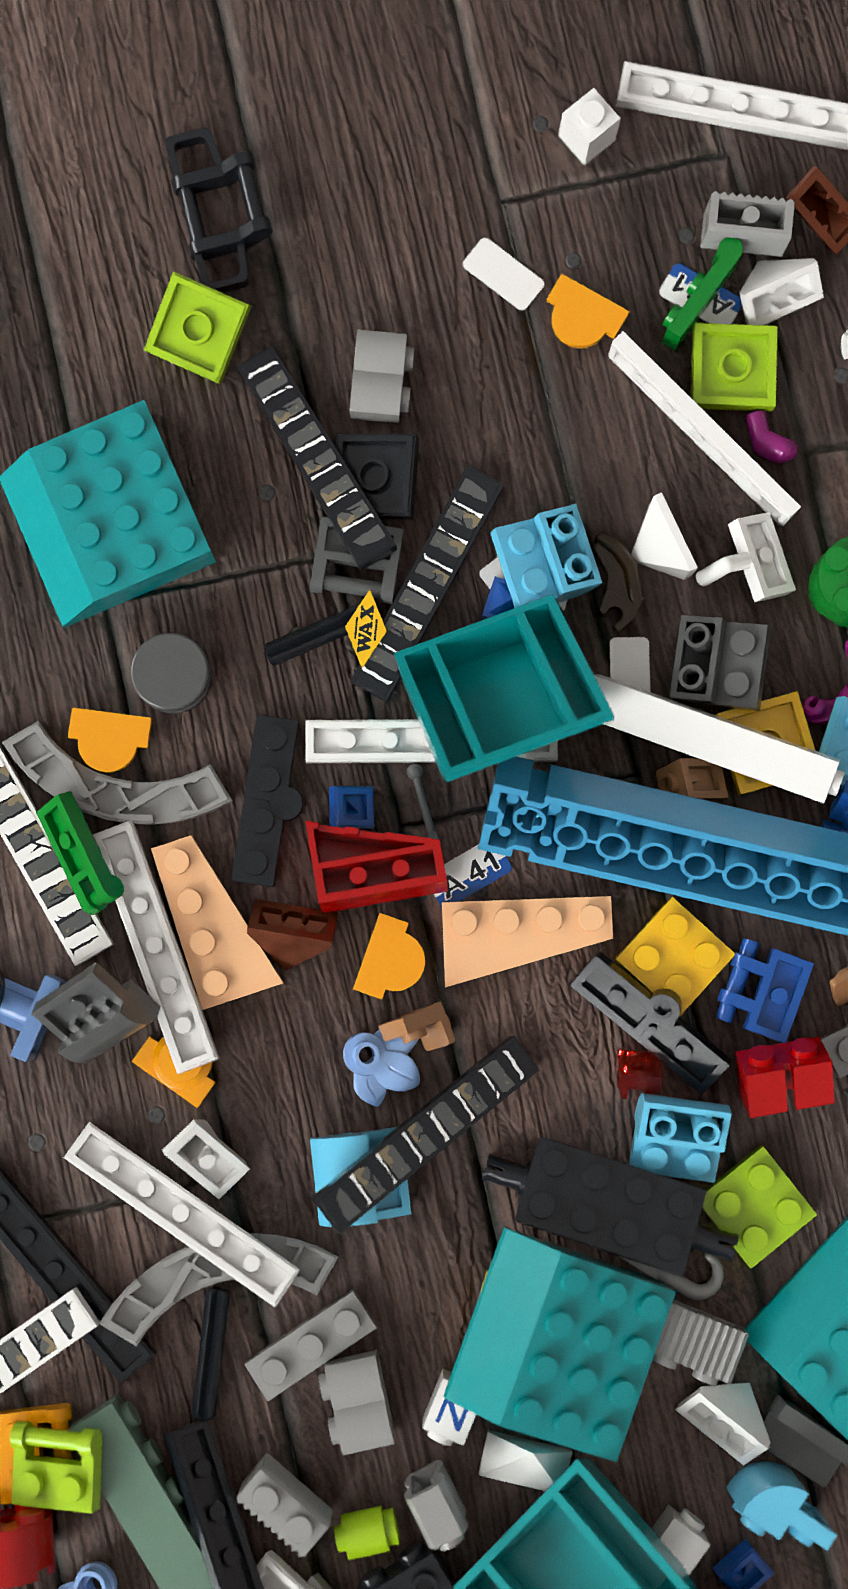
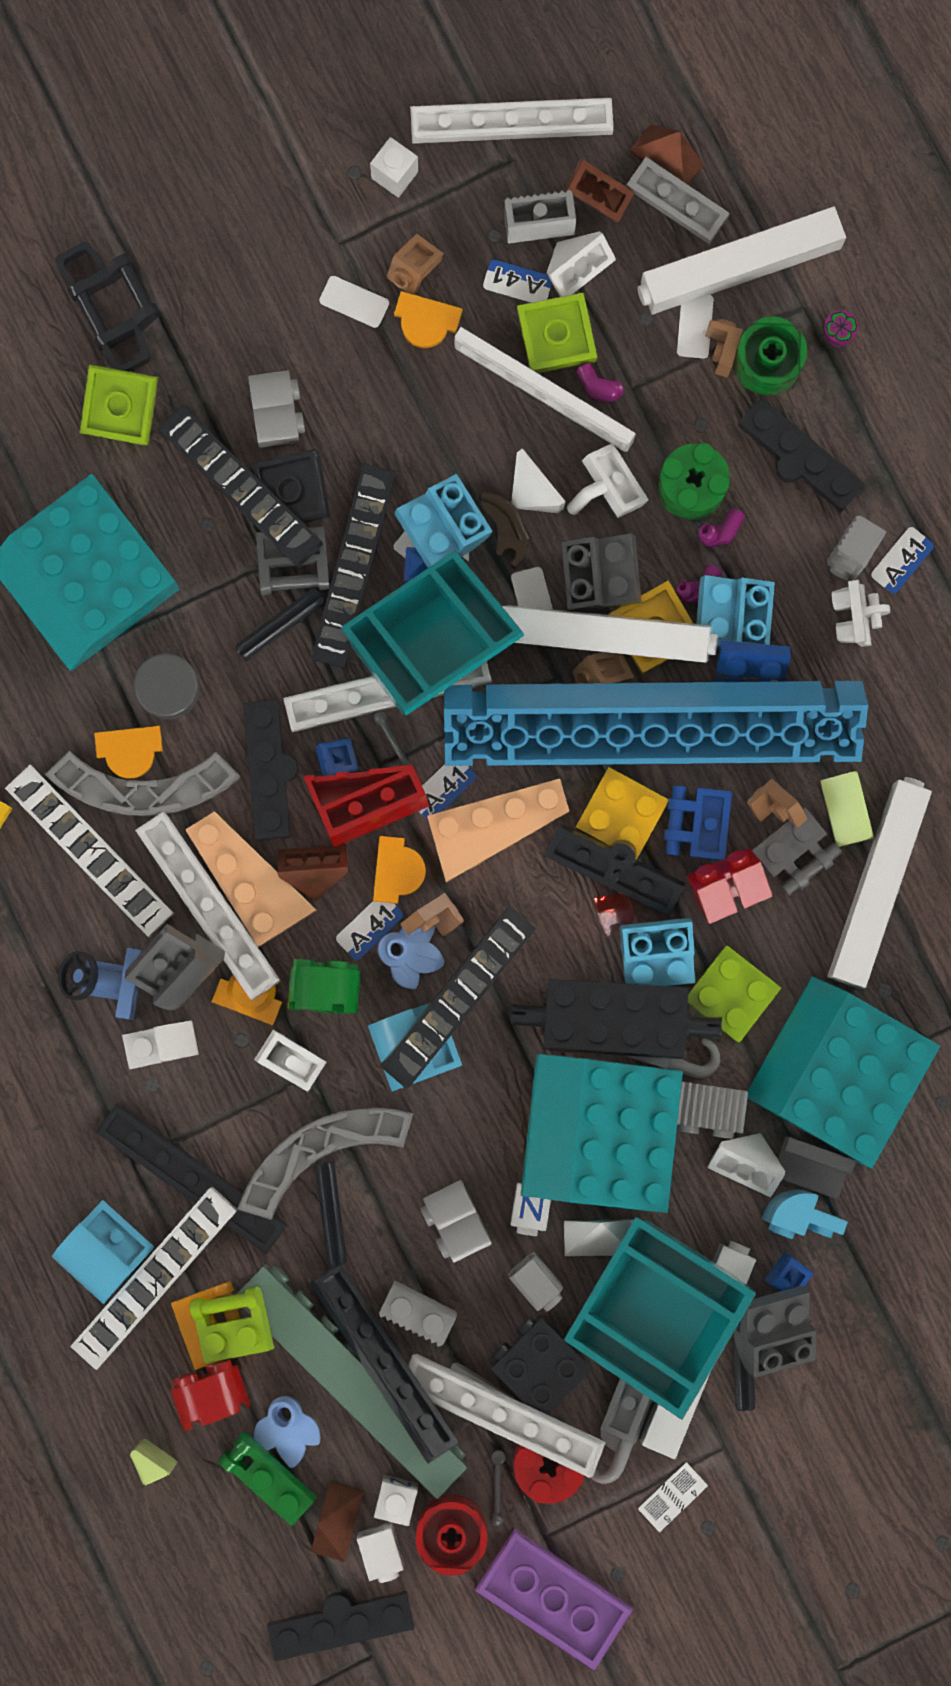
camera: 15 degrees left, 0 degrees up
(58, 1098) = (160, 1044): none -> white slope
(79, 854) = (129, 847): green plate -> none
(182, 1214) = (281, 1109): white tile -> none
(268, 1083) = (324, 988): none -> green brick
(310, 1344) = (408, 1187): light grey plate -> none
(339, 1019) = (368, 928): none -> sticker
(365, 628) = (313, 613): yellow sticker -> none
(367, 1532) = (487, 1319): lime brick -> none
(584, 245) = (413, 264): none -> medium nougat bracket
(702, 292) = (517, 280): green plate -> none

